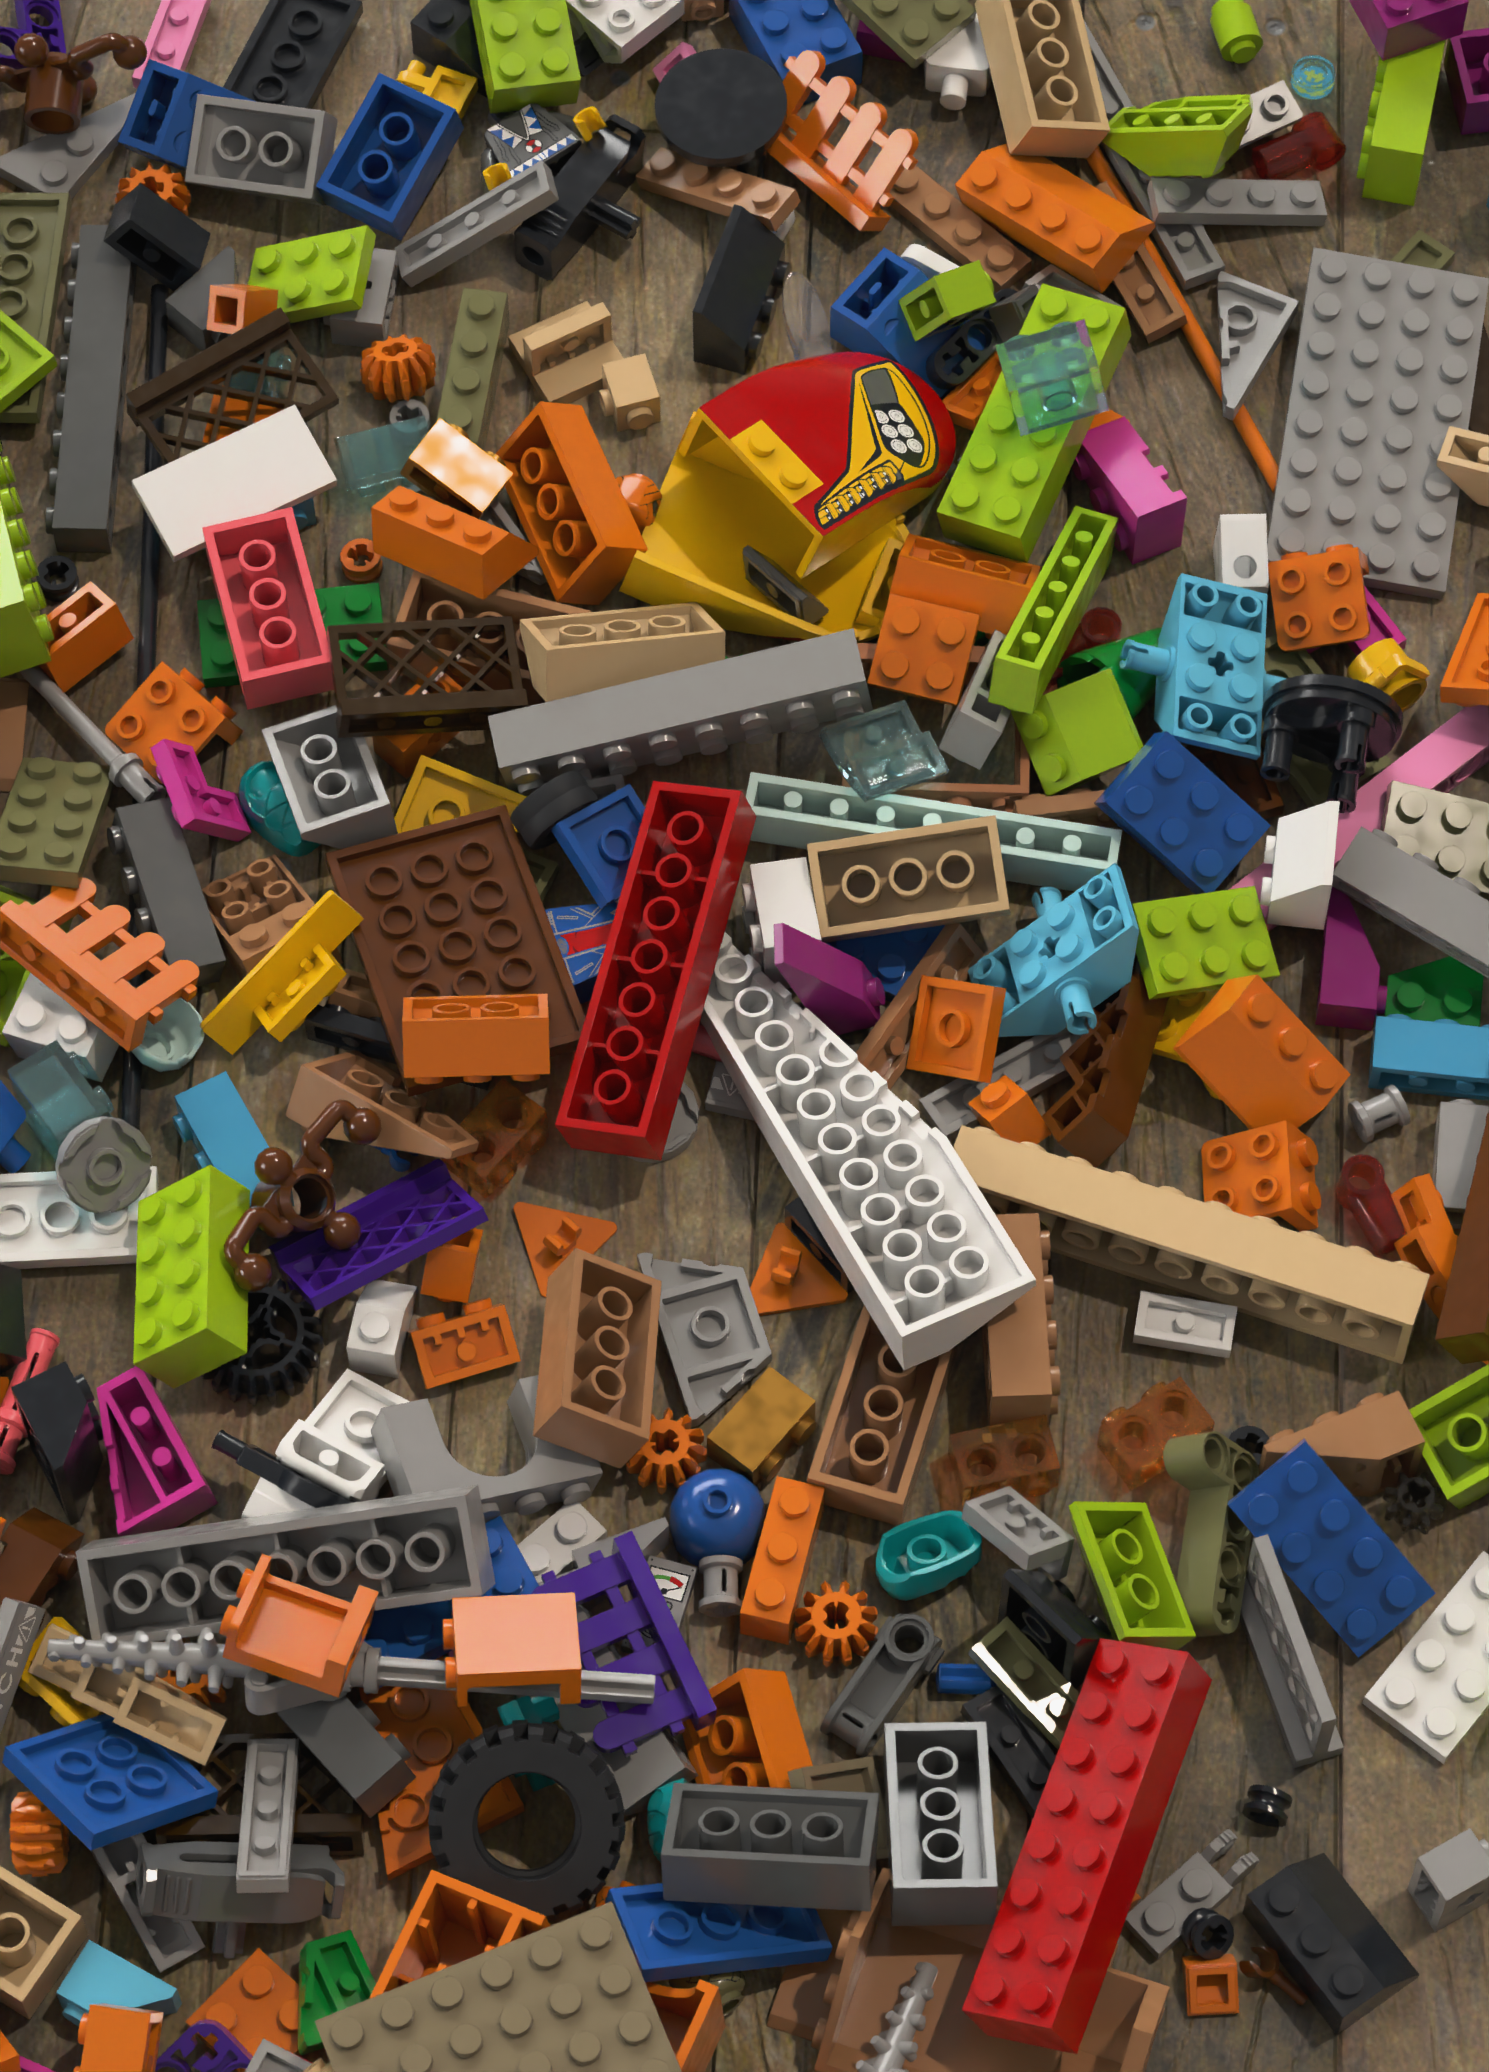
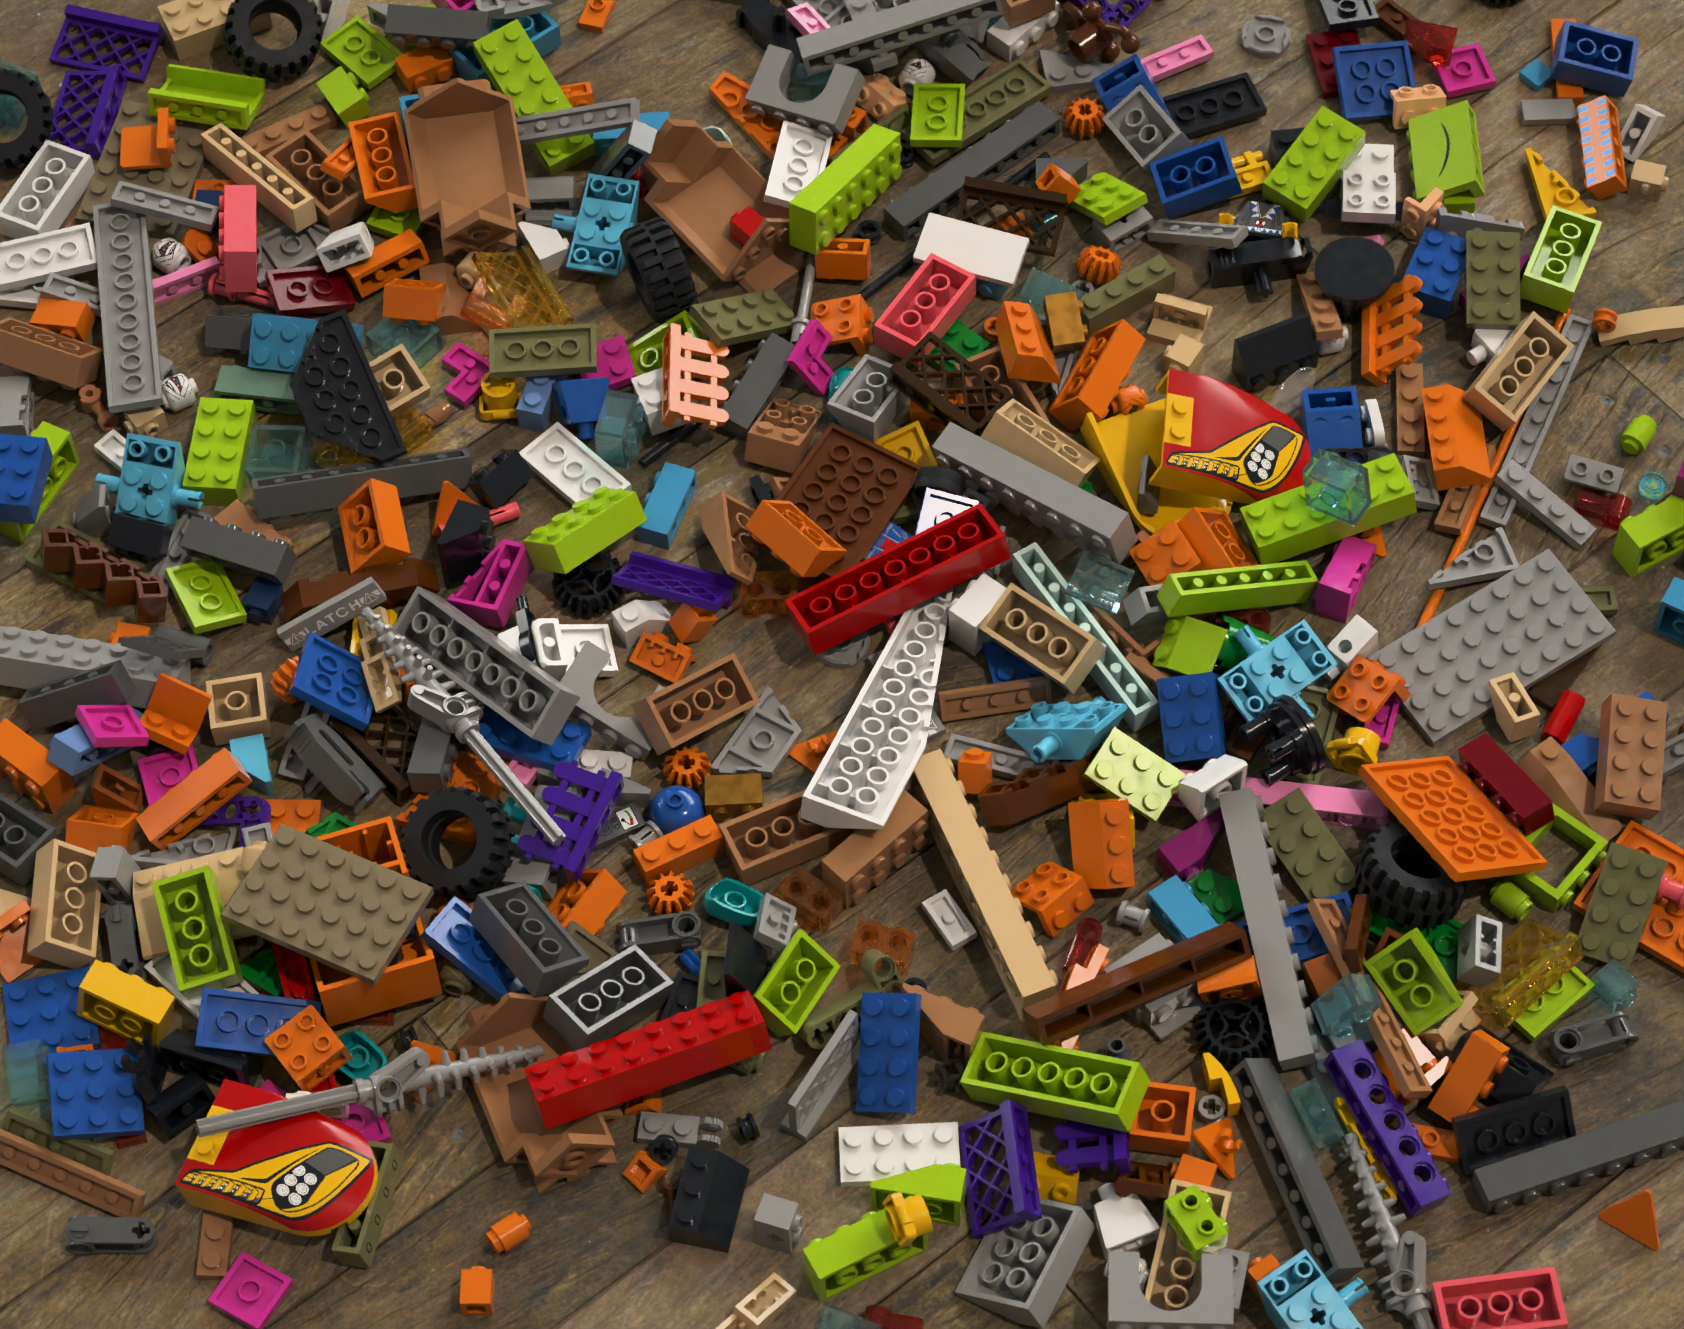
camera: 50 degrees right, 5 degrees down
(103, 1164) = (604, 460): light grey tile -> none
(157, 237) = (1061, 129): black brick -> none
(173, 1039) = (693, 439): light aqua hair -> none
(268, 1816) = (370, 749): light grey tile -> none
(288, 979) = (759, 454): yellow bracket -> none
(296, 1629) = (450, 683): orange panel -> none
(310, 1178) = (636, 534): reddish brown wheel -> none
(513, 1643) = (522, 768): panel -> none
(554, 1234) = (753, 654): orange piece -> none
(828, 981) = (962, 648): magenta slope -> none
(947, 300) = (1350, 427): lime brick -> none
(956, 1028) = (995, 717): orange plate -> none
(1181, 134) = (1546, 450): lime wedge -> none

